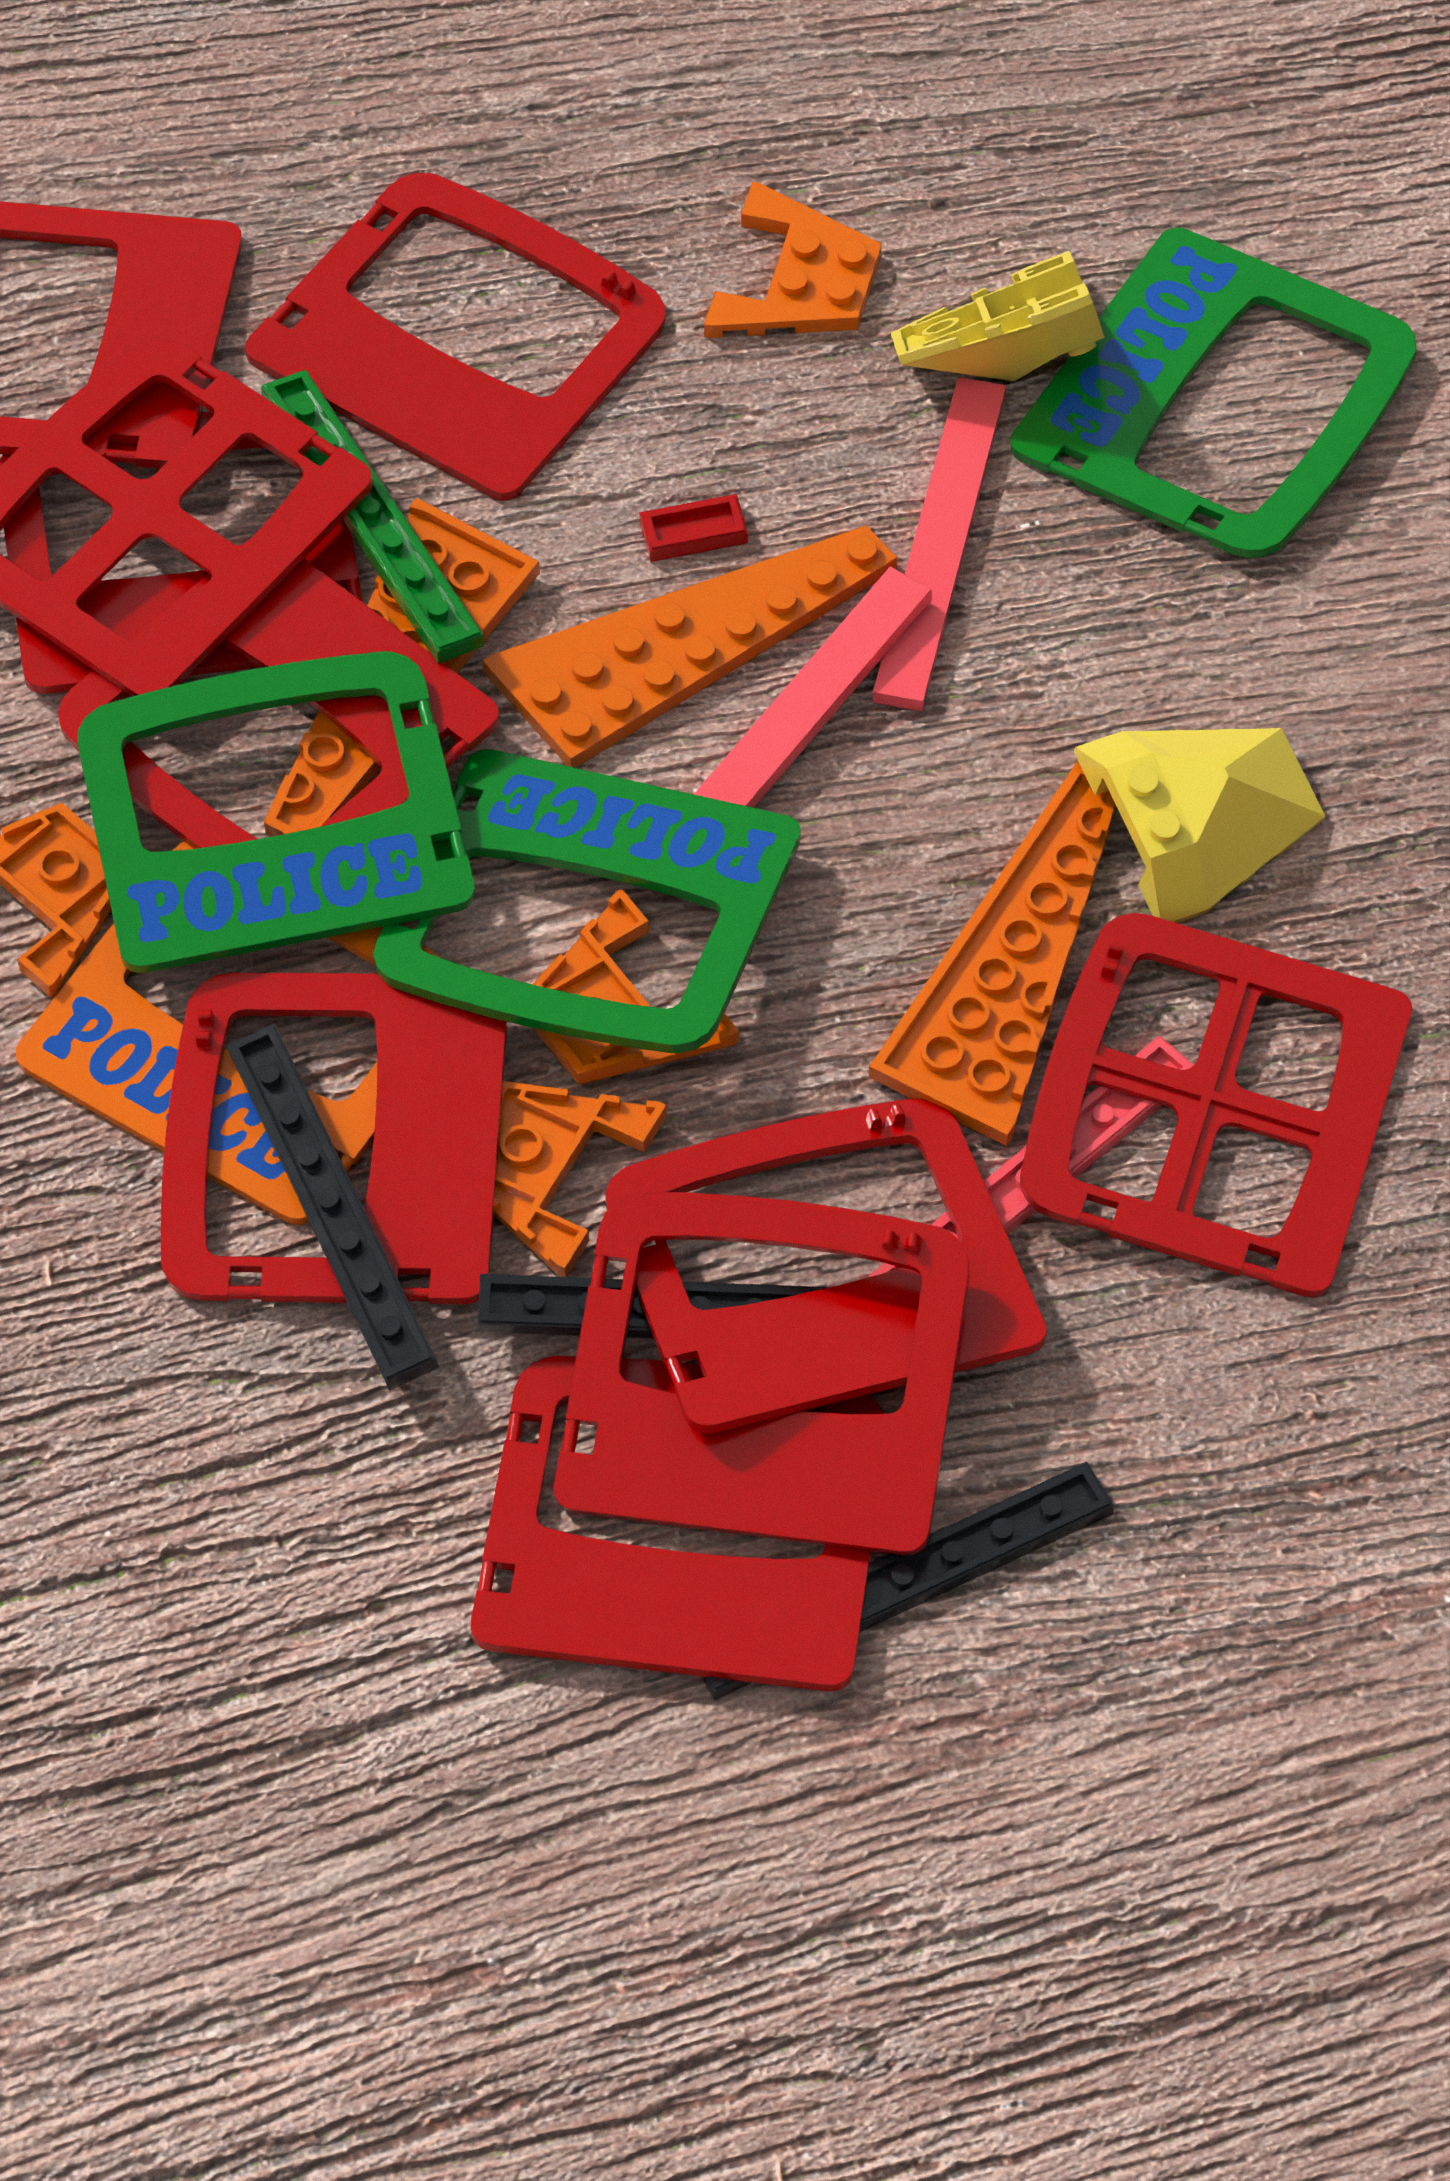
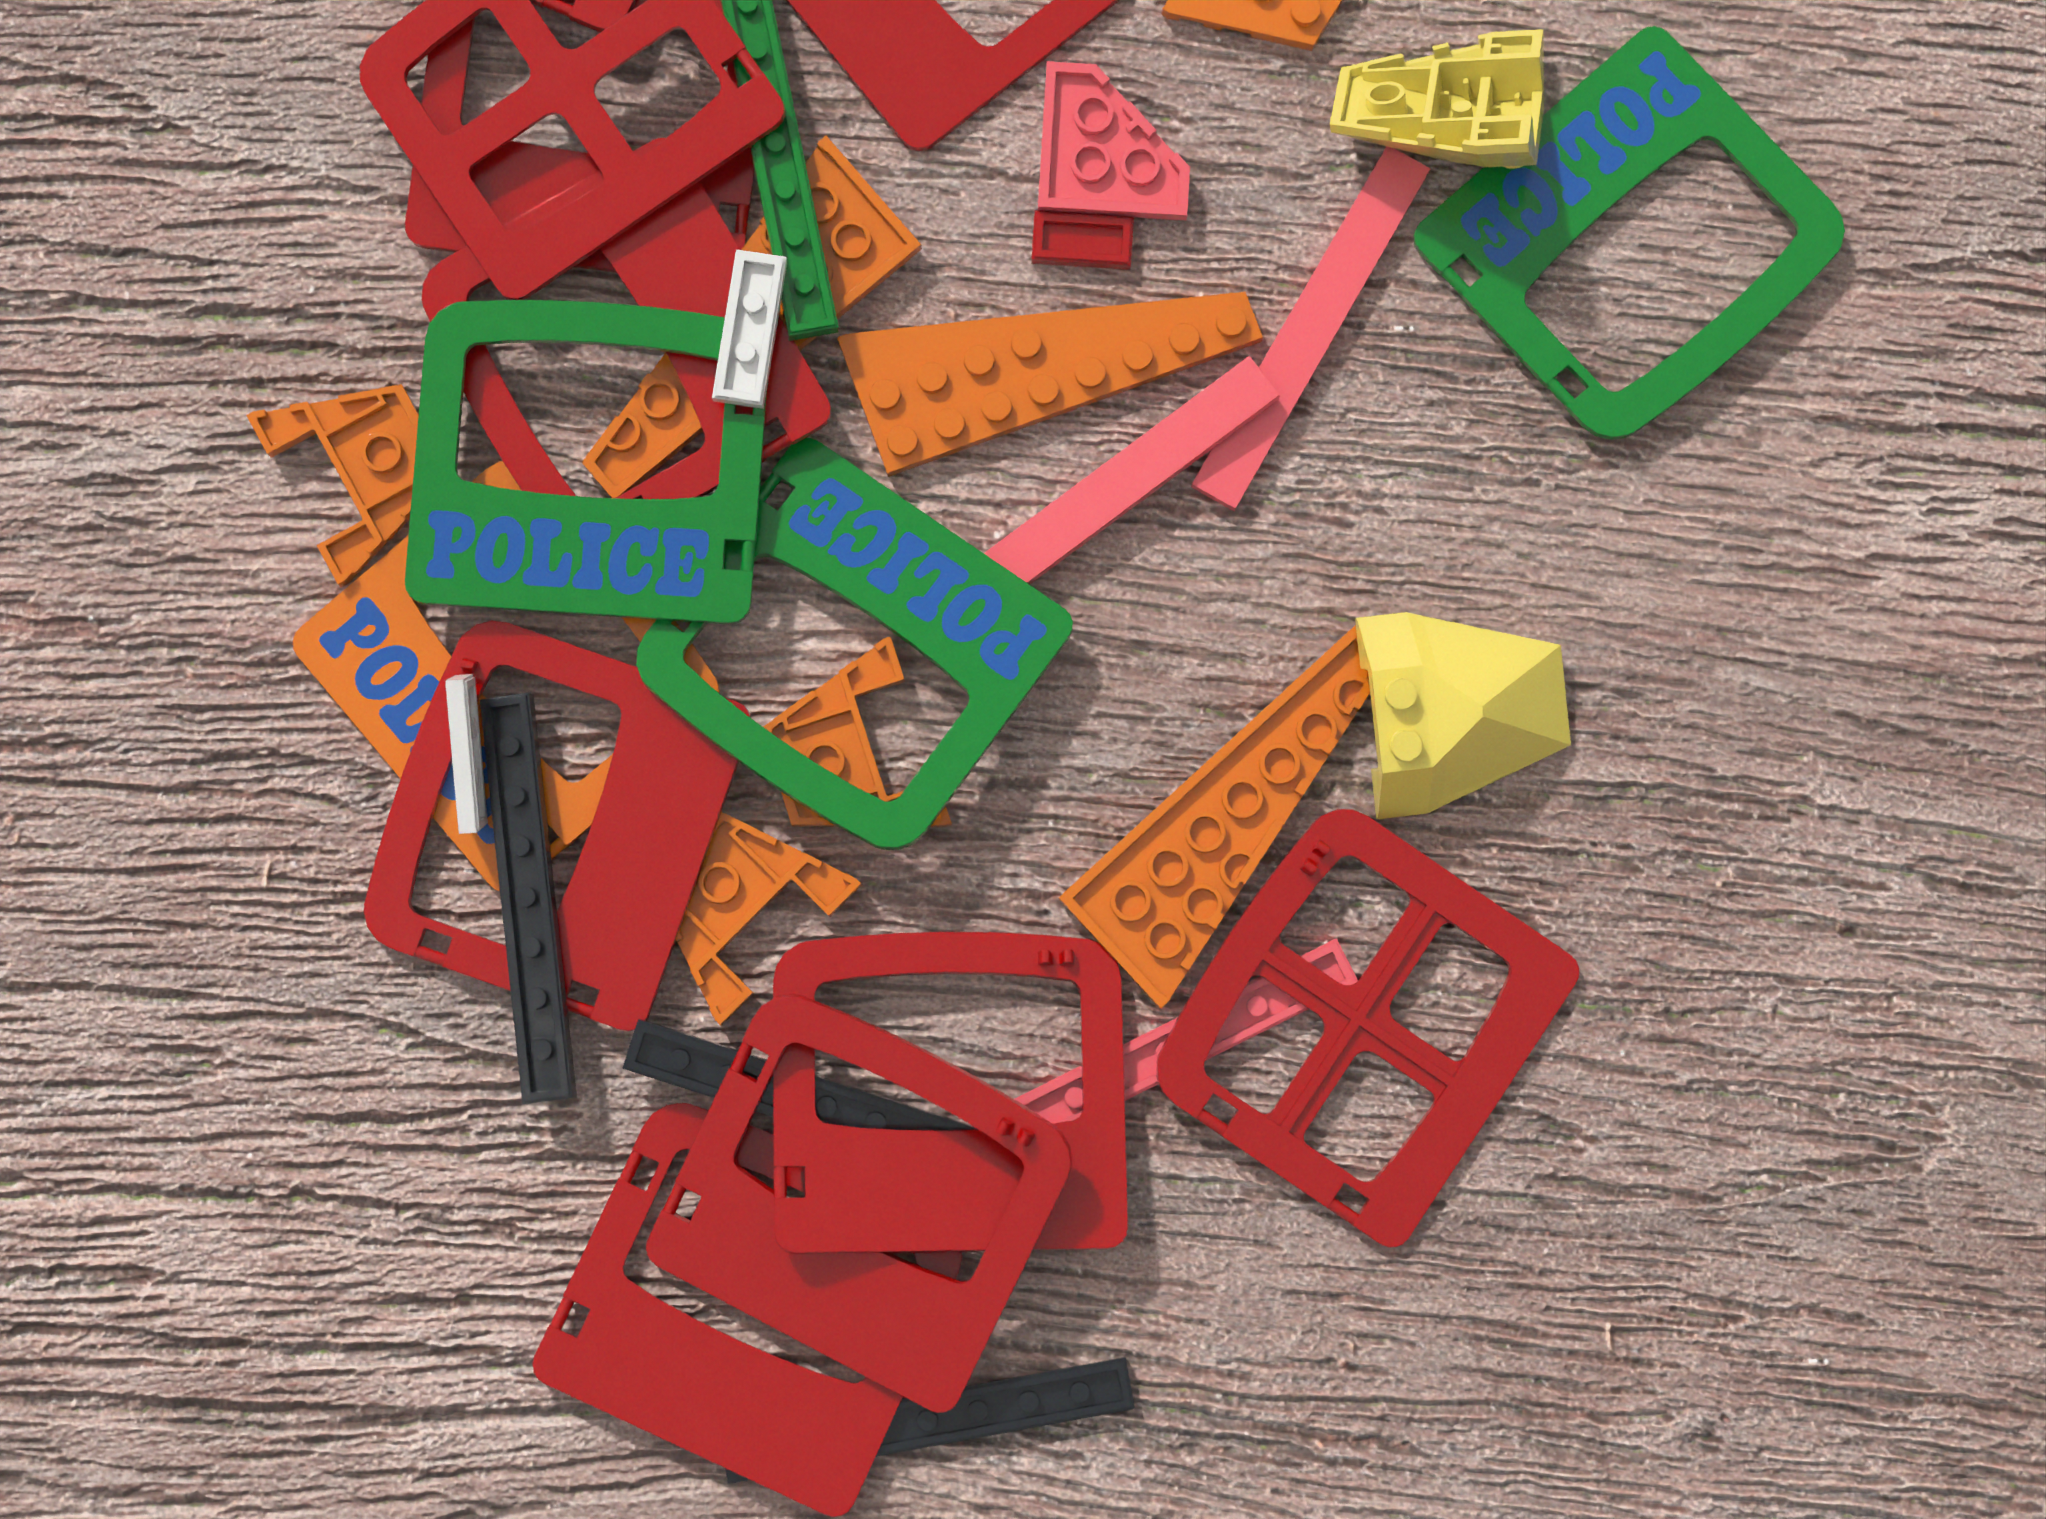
camera: 15 degrees right, 25 degrees up
(229, 1084) = (466, 753): none -> white tile
(398, 652) = (749, 329): none -> white tile
(690, 449) = (1104, 152): none -> coral plate

